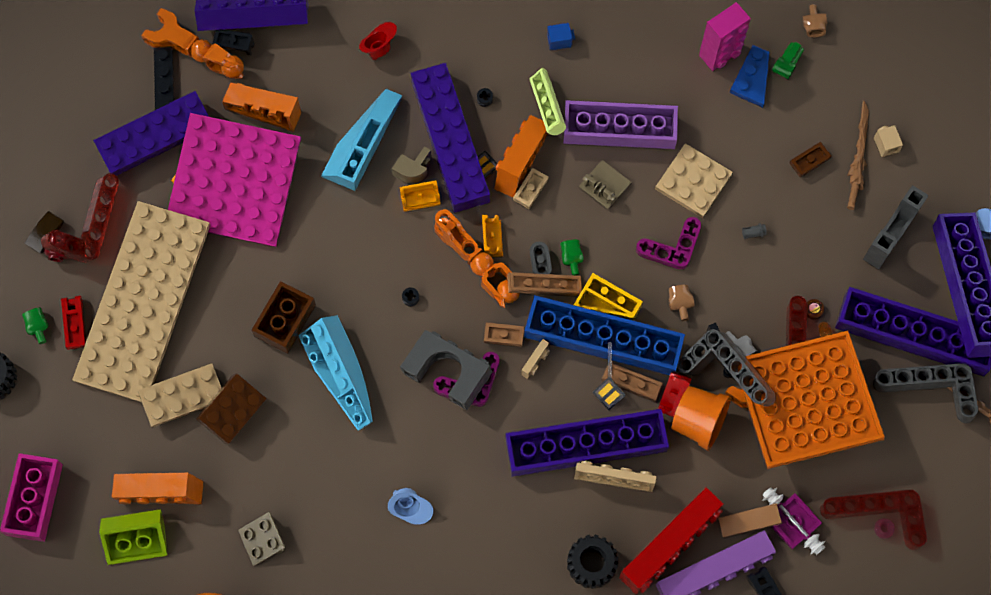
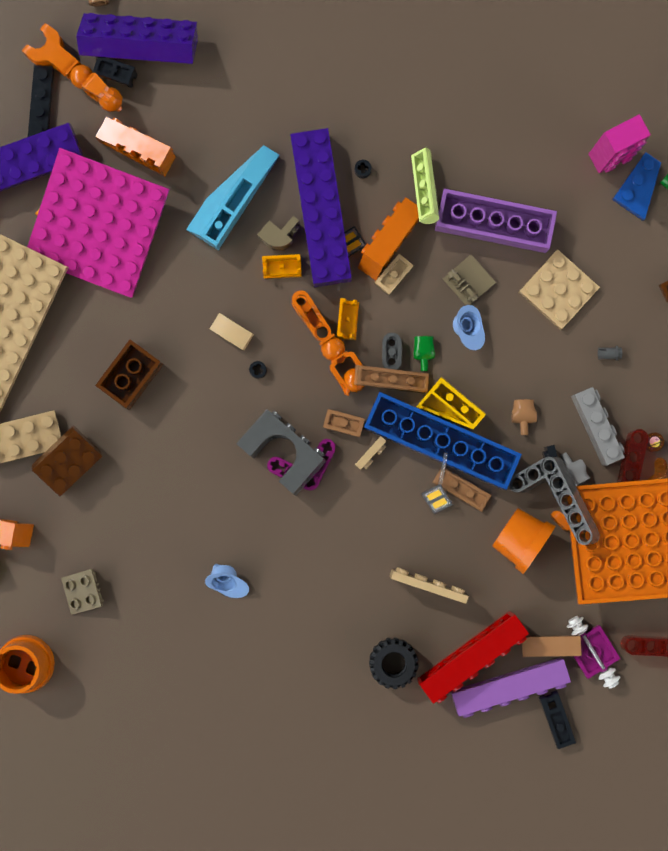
camera: 10 degrees right, 15 degrees up
(338, 368) = (177, 434): medium azure wedge -> none
(378, 41) = (263, 92): red piece -> none
(379, 263) = (231, 331): none -> tan slope
(560, 36) = (450, 114): blue brick -> none
(588, 441) = (407, 546): dark purple brick -> none
(612, 224) = (469, 327): none -> light blue piece
(673, 393) = (500, 511): red hinge -> none
(679, 251) = (532, 361): magenta beam -> none
(755, 300) = (597, 426): none -> light grey brick

